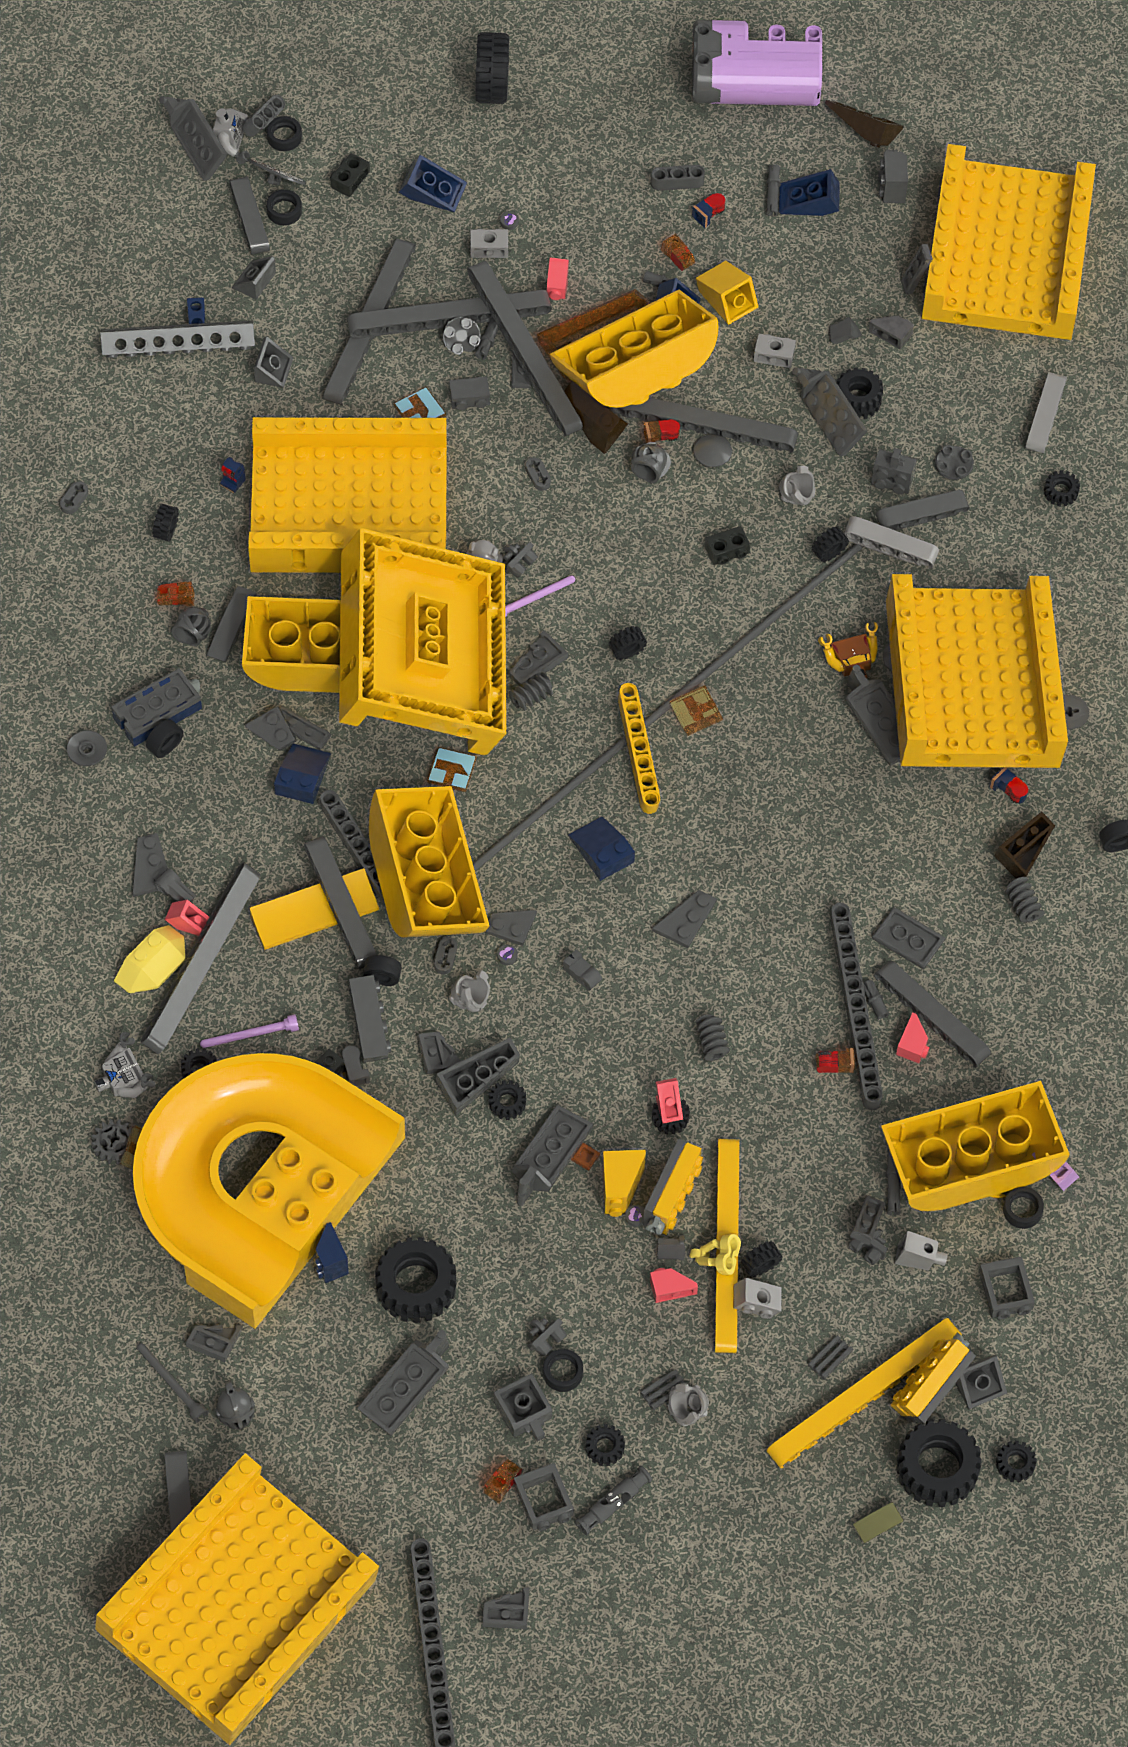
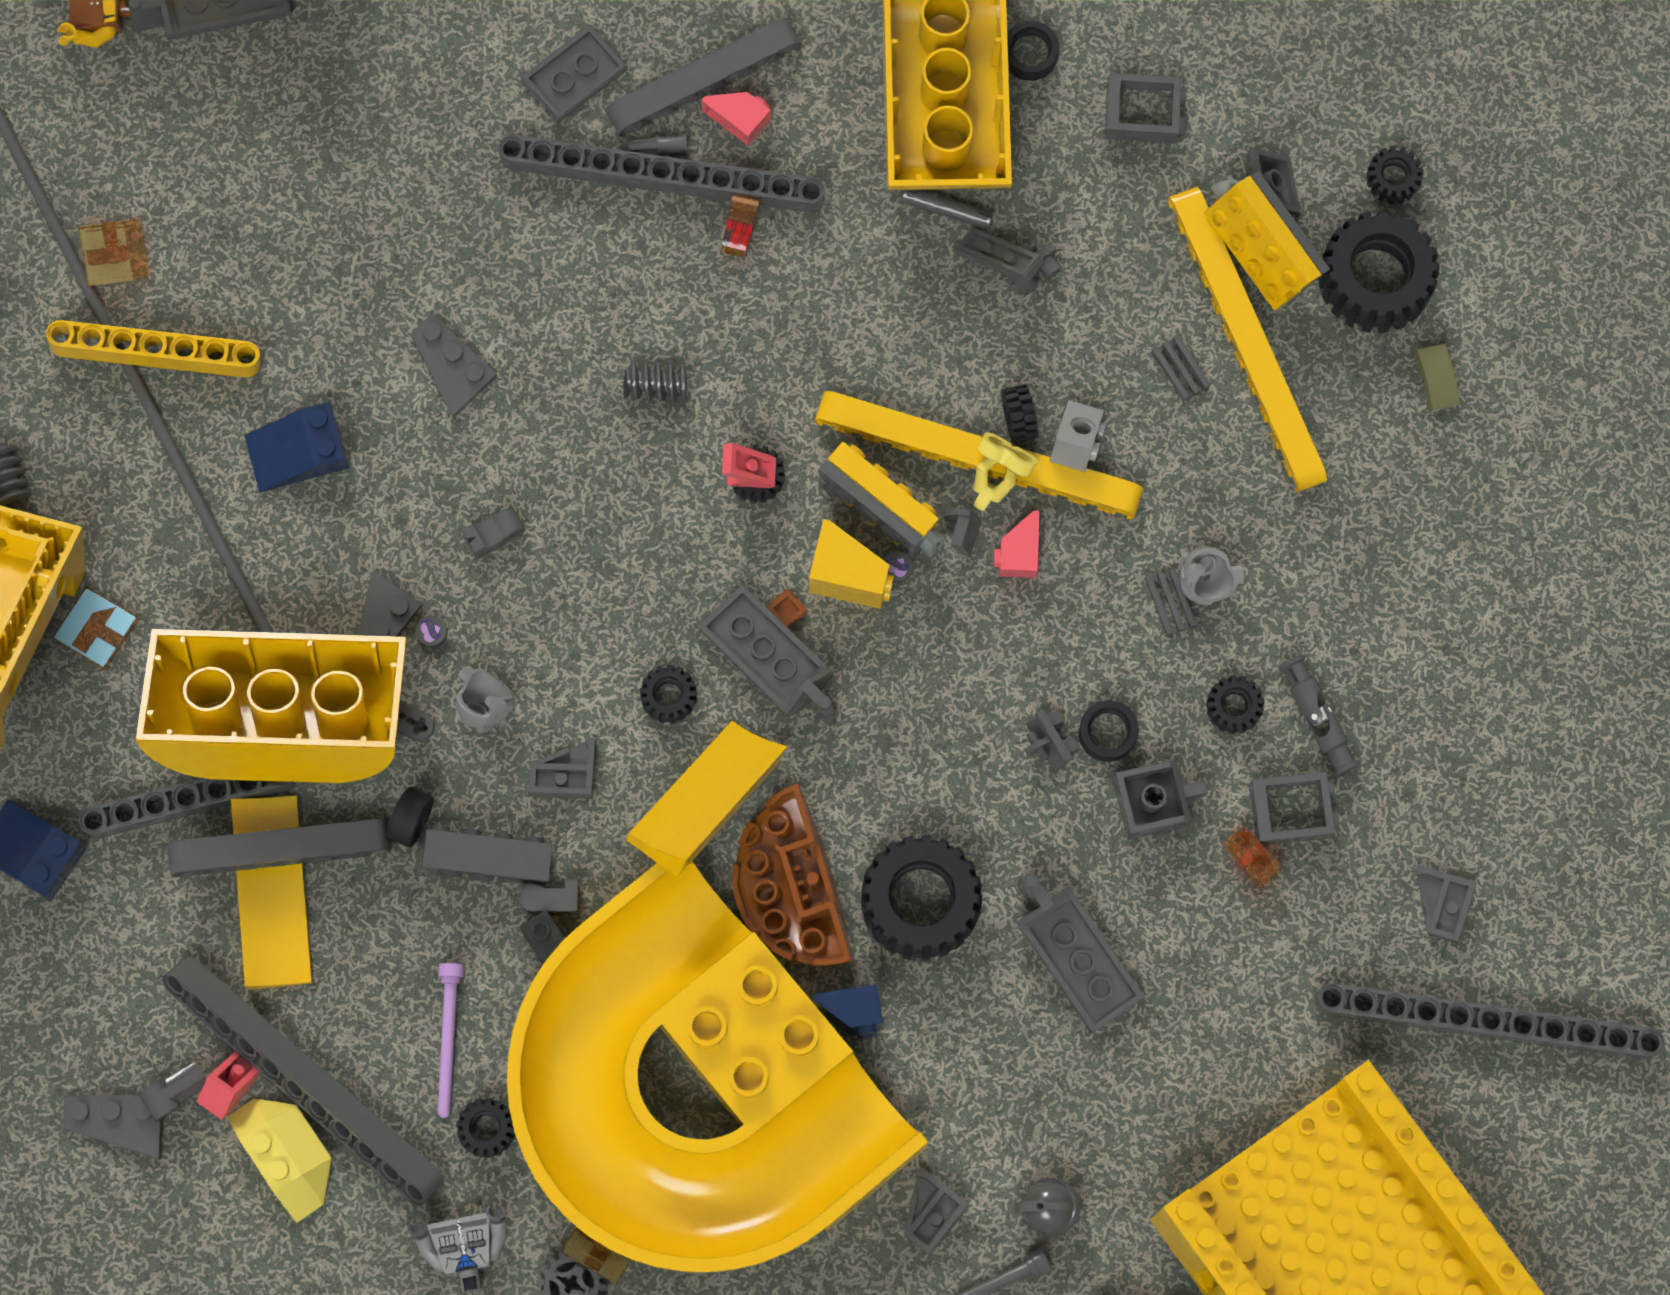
camera: 75 degrees left, 15 degrees up
(404, 1202) = (788, 886): none -> dark orange brick
(441, 1130) = (705, 797): none -> yellow arch
(479, 1072) = (625, 751): dark grey wedge -> none
(919, 1252) = (1067, 200): light grey torso -> none

